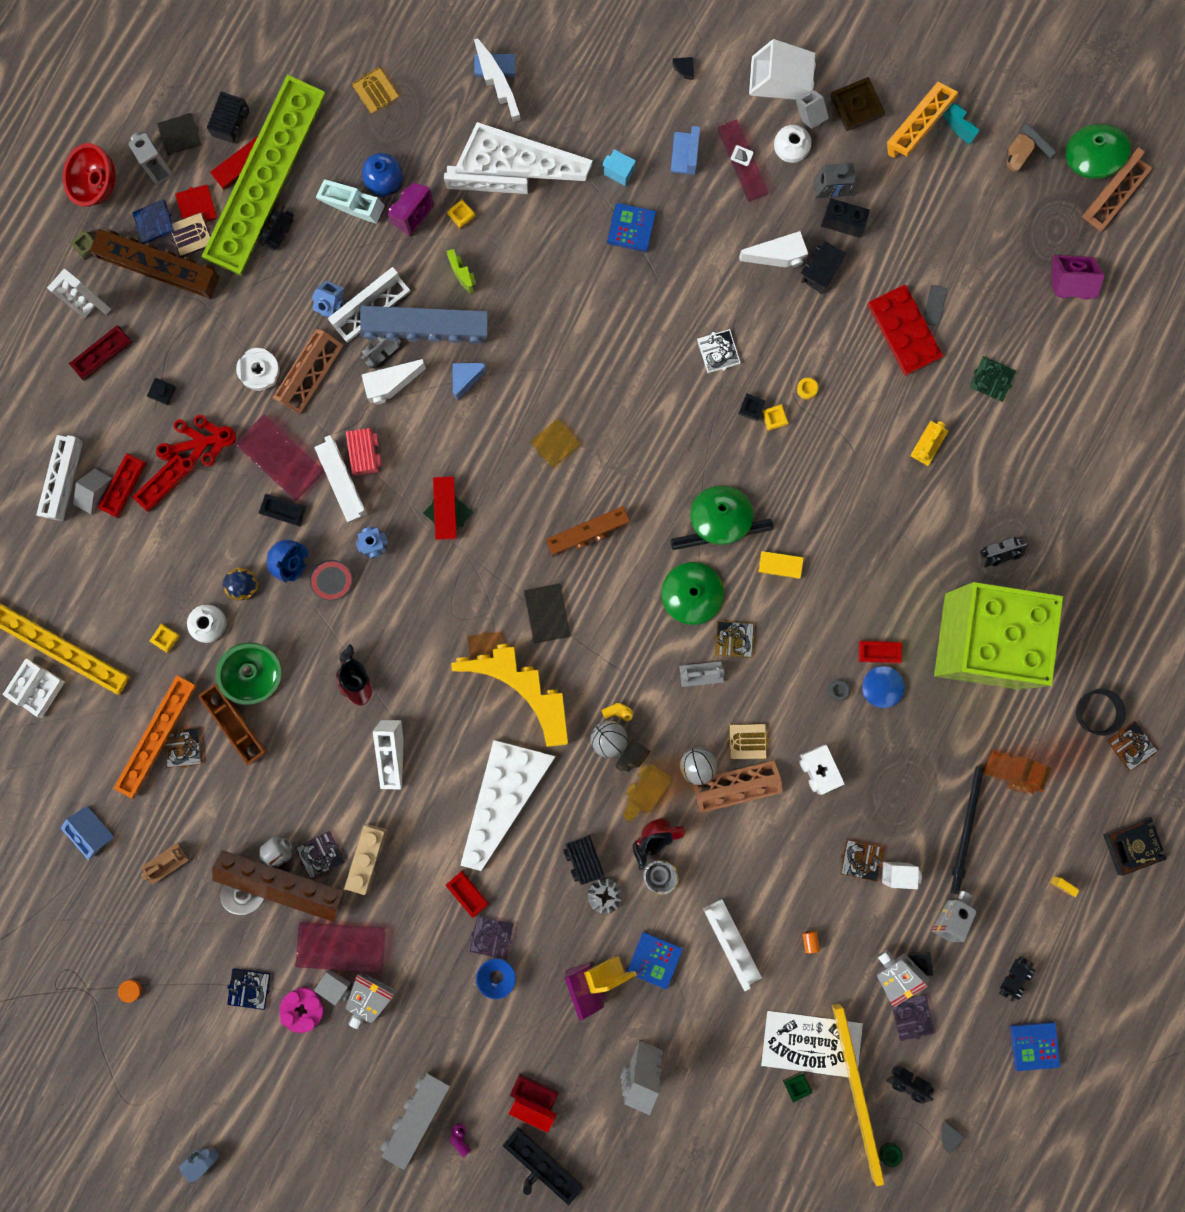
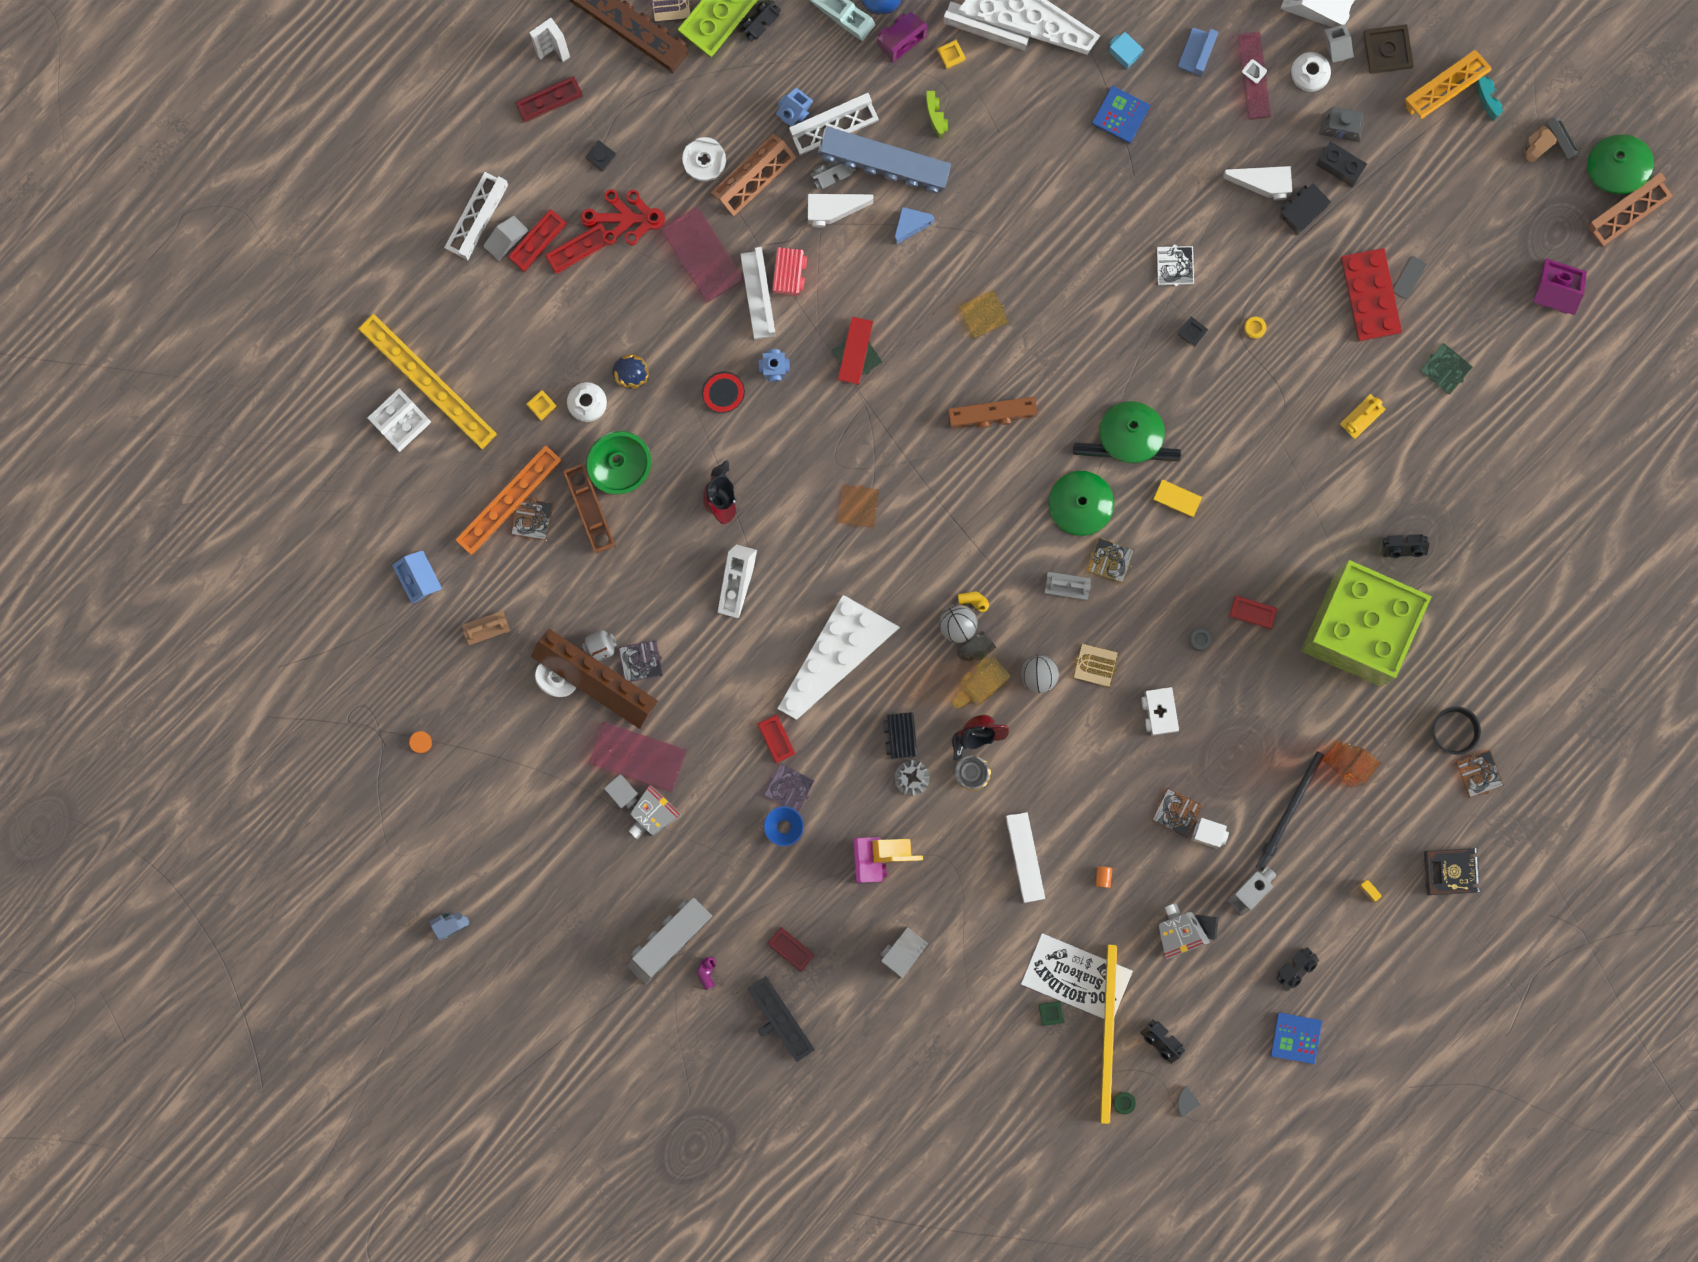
camera: 15 degrees right, 0 degrees up
(248, 989) = (537, 772): piece -> none
(282, 510) = (691, 308): black tile -> none
(286, 560) = (684, 359): blue cylinder -> none
(290, 1016) = (588, 818): dark pink plate -> none
(365, 858) = (686, 676): tan arch -> none
(503, 666) = (891, 546): yellow arch -> none
(532, 1113) = (784, 966): red tile -> none
(547, 613) = (929, 484): clear smoke piece -> none
(655, 960) = (944, 853): blue tile -> none
(739, 790) = (1073, 710): nougat fence -> none
(774, 417) = (1213, 348): yellow tile -> none
(883, 687) = (1246, 647): blue dish -> none
(913, 1018) = (1183, 978): clear purple piece -> none

